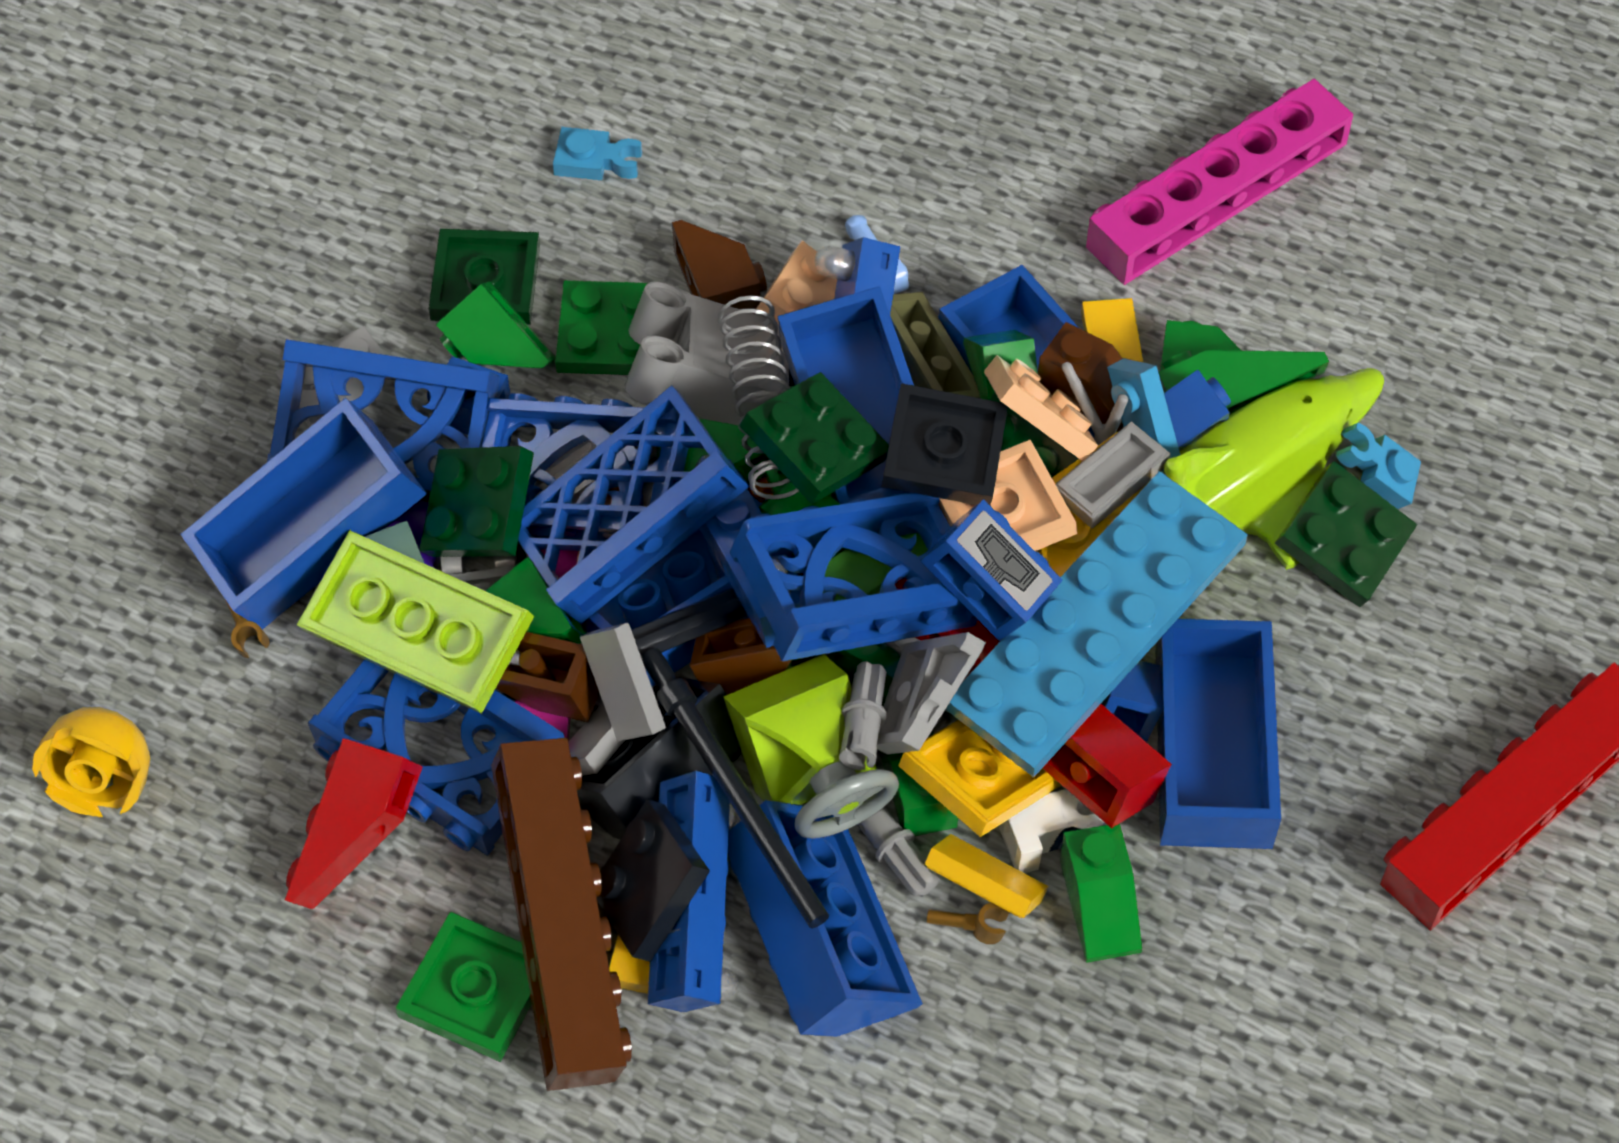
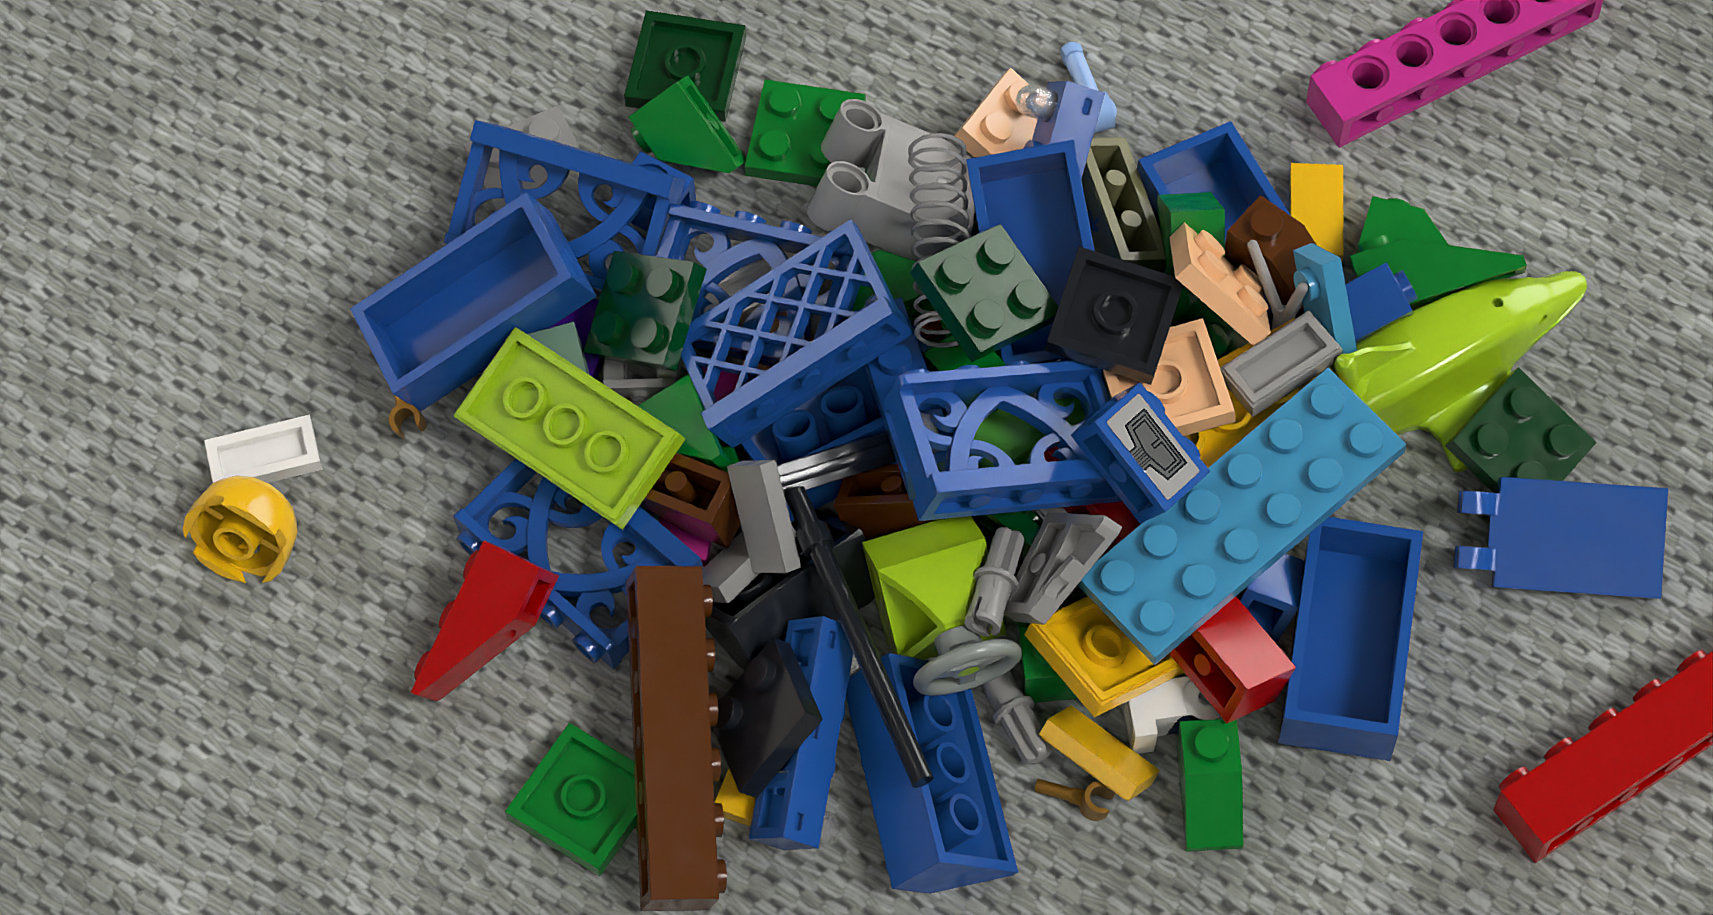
camera: 10 degrees right, 5 degrees up
(113, 684) = (266, 451): none -> white tile
(717, 266) = (922, 86): reddish brown slope -> none
(1385, 464) = (1573, 375): dark azure plate -> none
(1408, 614) = (1570, 536): none -> blue tile

